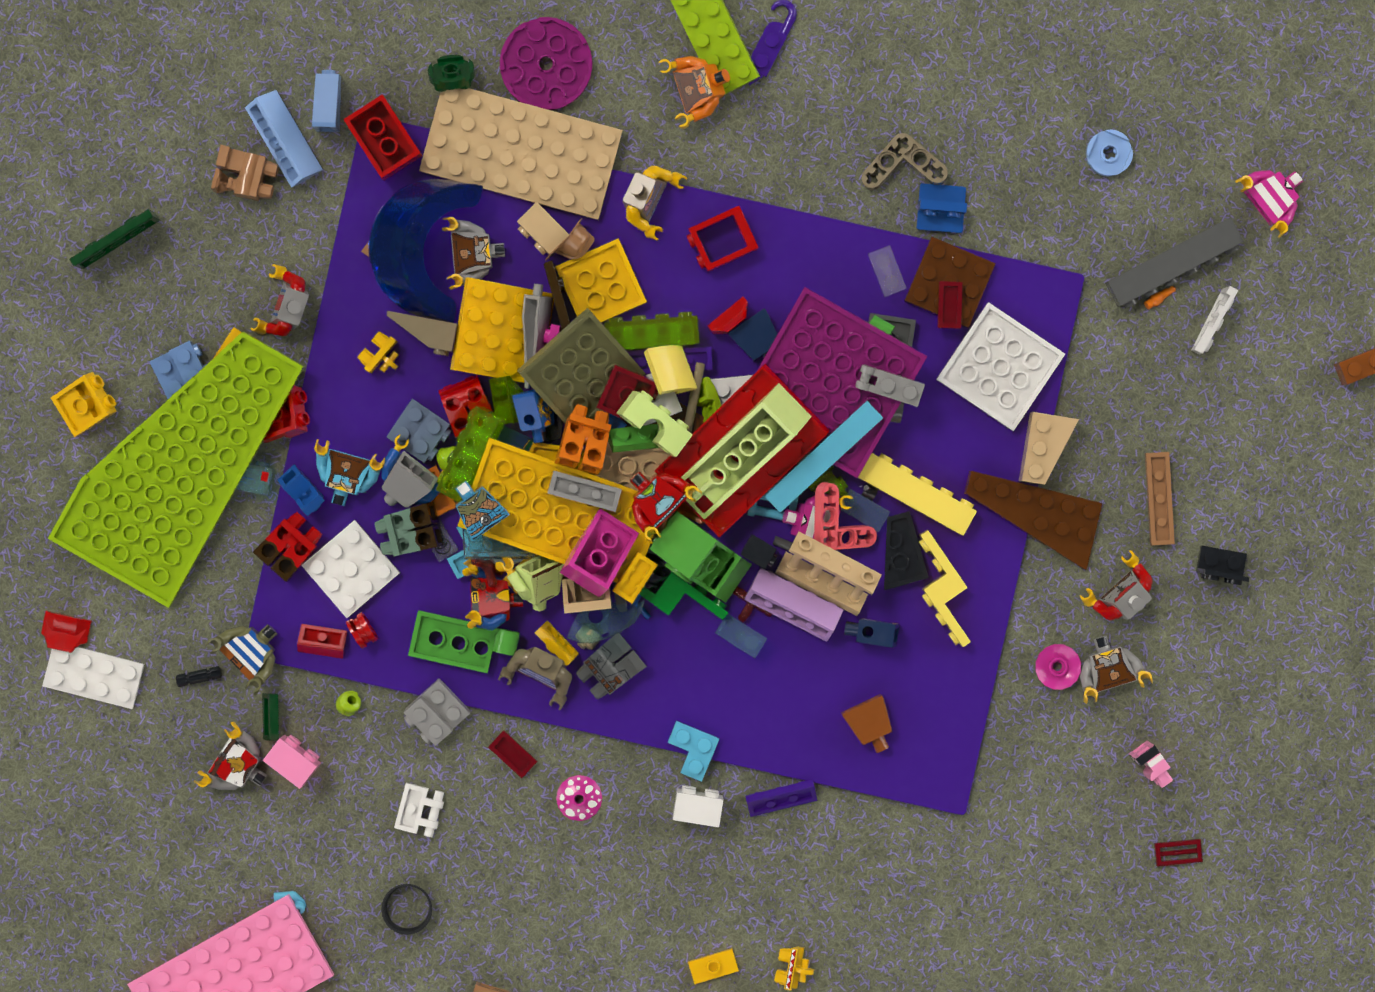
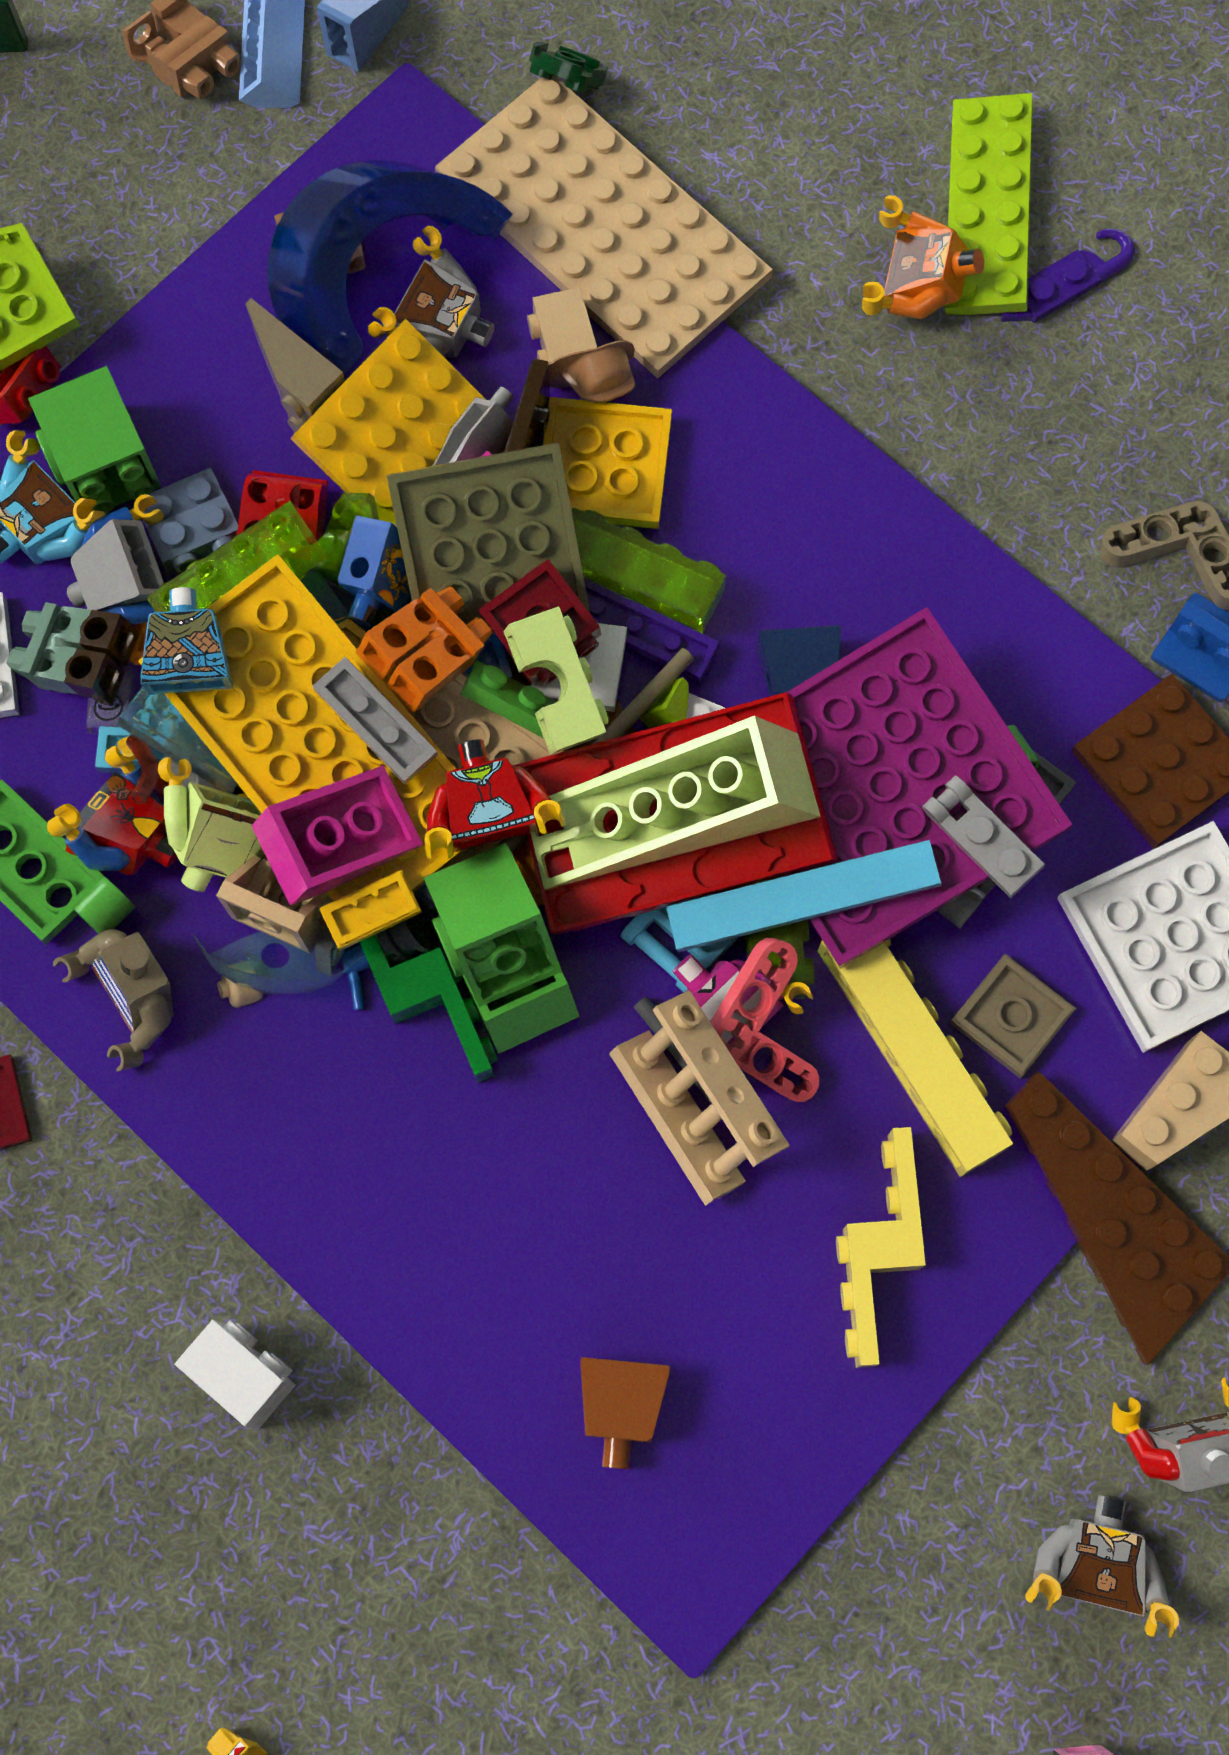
camera: 30 degrees right, 15 degrees down
(288, 306) = (116, 242): torso -> none
(353, 424) = (93, 441): none -> bright green brick
(372, 361) = (206, 381): yellow hips -> none
(382, 137) = (411, 89): red brick -> none
(546, 39) = (714, 95): magenta plate -> none
(556, 643) = (183, 959): yellow plate -> none
(579, 786) = (78, 1250): dark pink dish -> none
(603, 666) = (246, 1047): dark grey hips -> none
(644, 196) = (749, 367): torso -> none
(670, 369) = (633, 625): light yellow slope -> none
(700, 748) = (307, 1276): medium azure plate -> none
(713, 966) = (88, 1686): yellow plate -> none
(730, 318) = (773, 613): red slope -> none
(741, 635) = (492, 1126): clear light blue slope -> none
(745, 232) = (832, 530): red window -> none
(749, 607) = (544, 1082): clear red piece -> none
(759, 552) = (603, 997): black brick -> none
(781, 798) = (390, 1449): dark purple plate -> none
(794, 604) = (610, 1122): lavender brick -> none
(865, 510) = (819, 1040): clear light blue tile -> none
(869, 492) = (844, 1012): black hand -> none
(883, 632) = (733, 1261): dark blue torso -> none
(887, 271) = (1069, 686): clear plate -> none
(903, 553) = (845, 1147): black wing -> none
(945, 447) = (1012, 1016): none -> dark tan tile
(949, 305) = (1147, 787): dark red tile -> none
(1069, 669) = (1033, 1507): dark pink dish -> none

